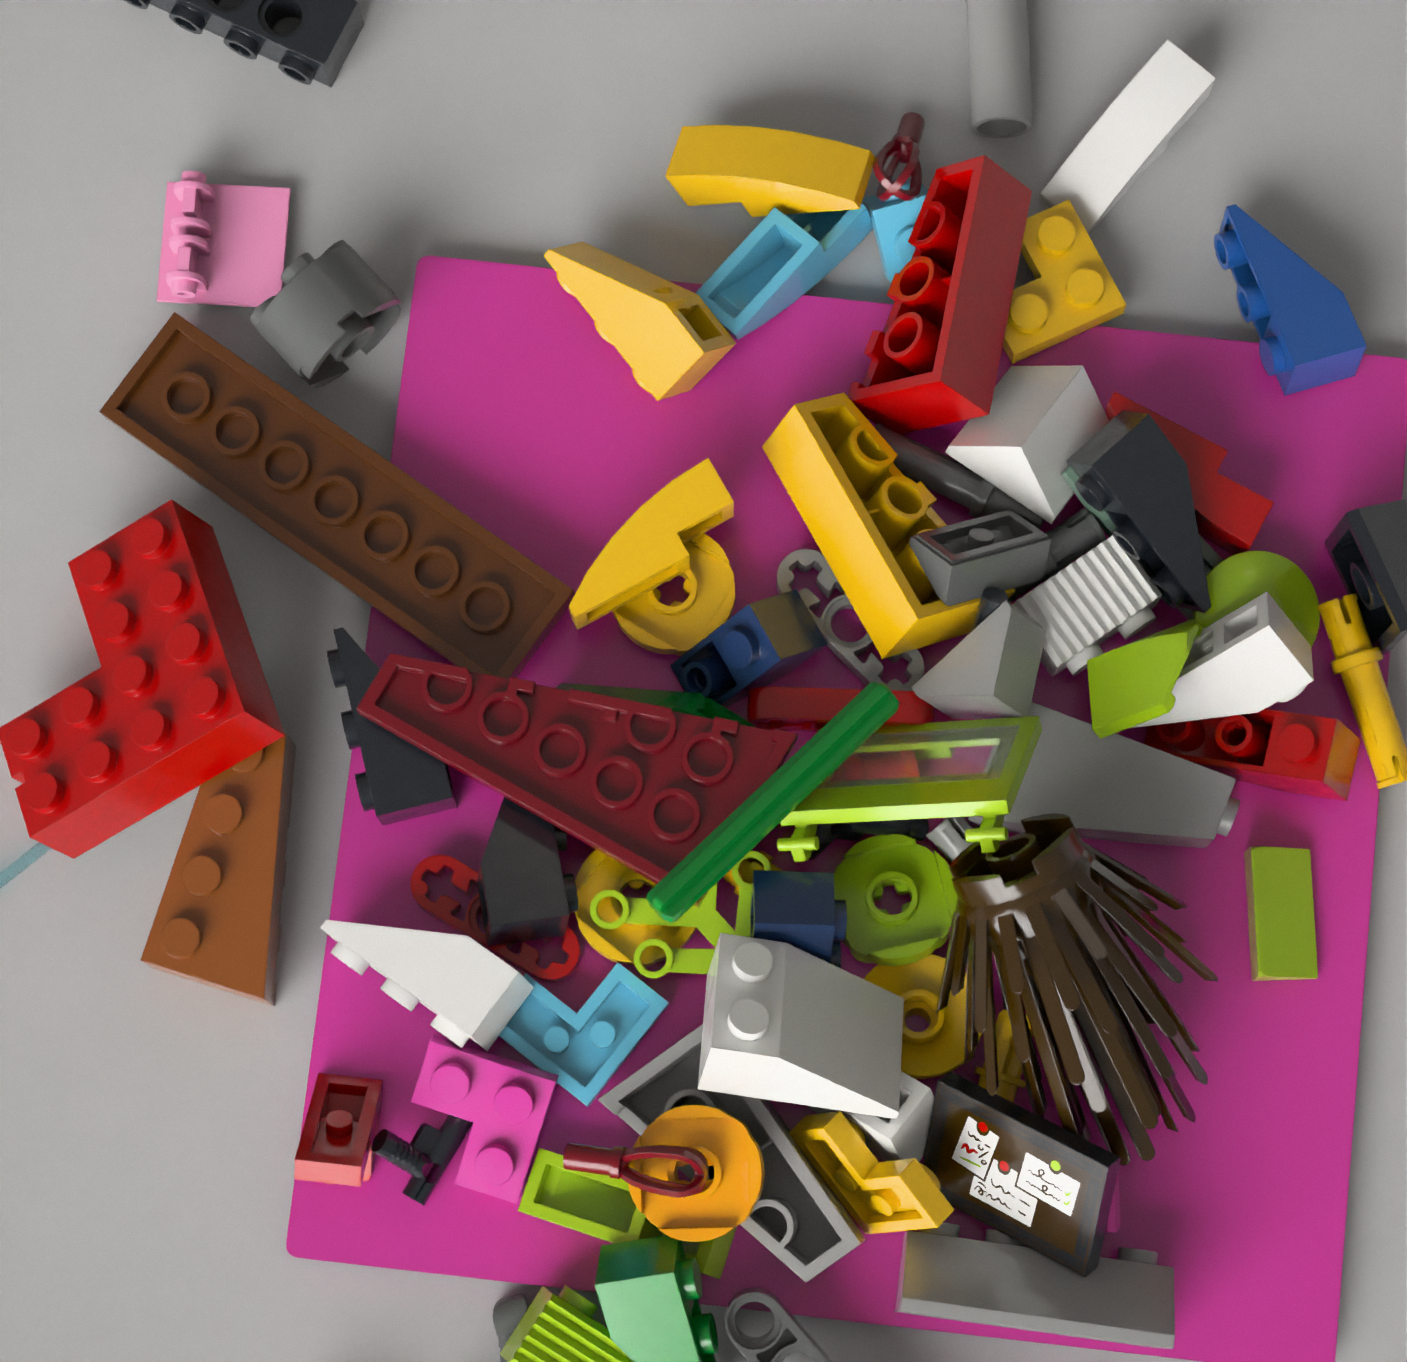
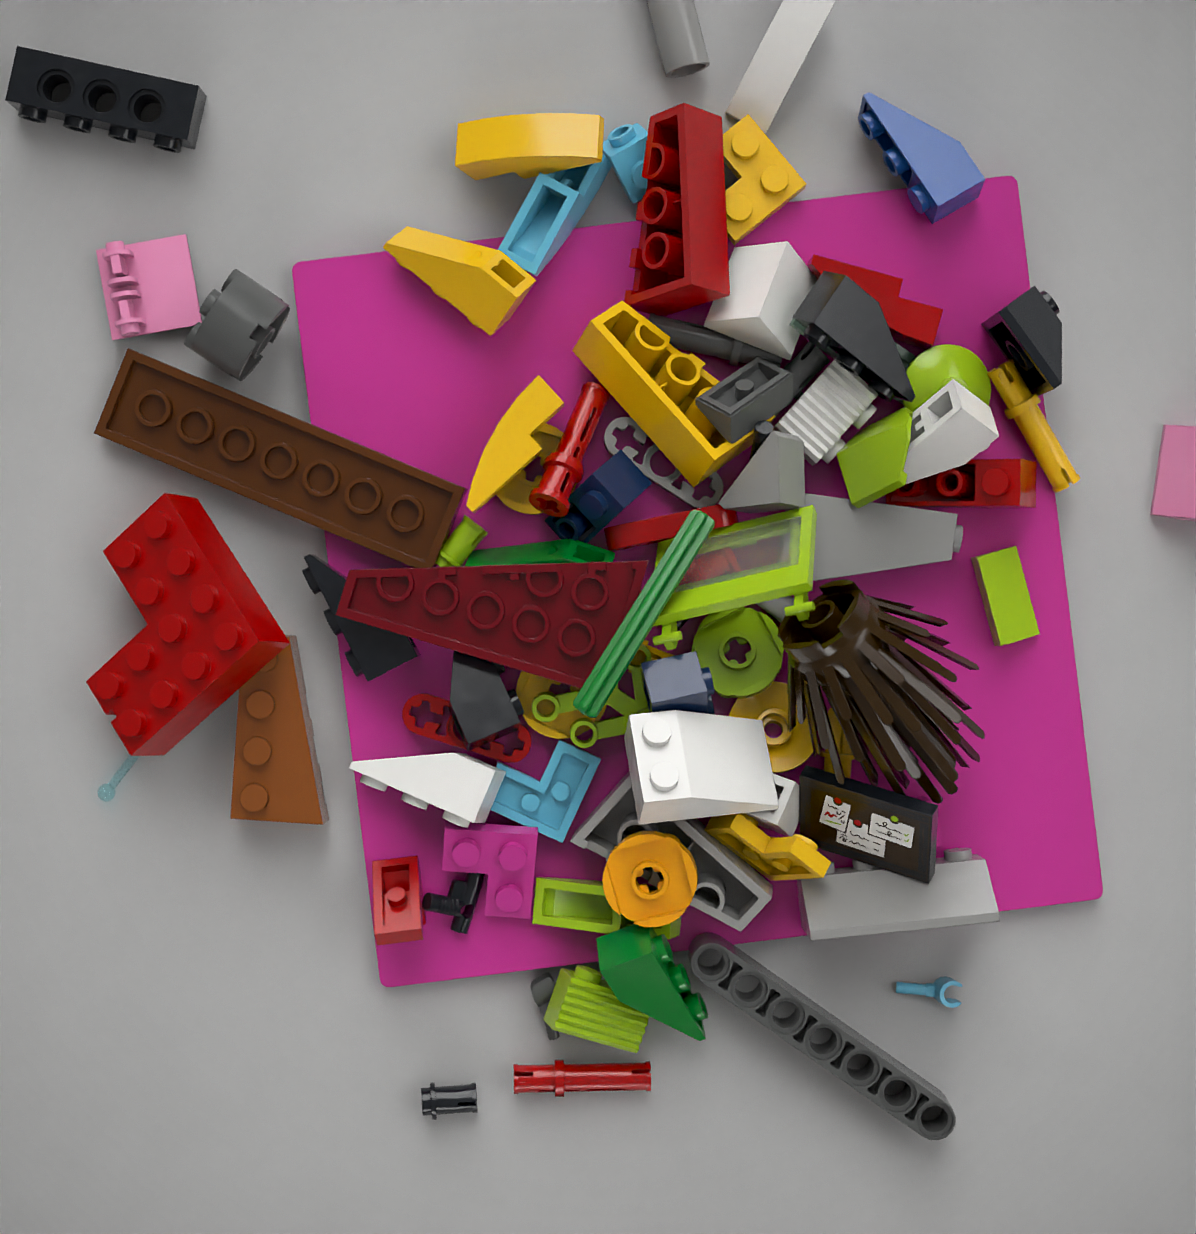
camera: 15 degrees left, 10 degrees up
(554, 662) = (461, 543): none -> lime pin
(616, 1163) = (596, 889): dark red piece -> none
(714, 589) = (564, 466): none -> red pin
(903, 149) = (622, 103): dark red piece -> none

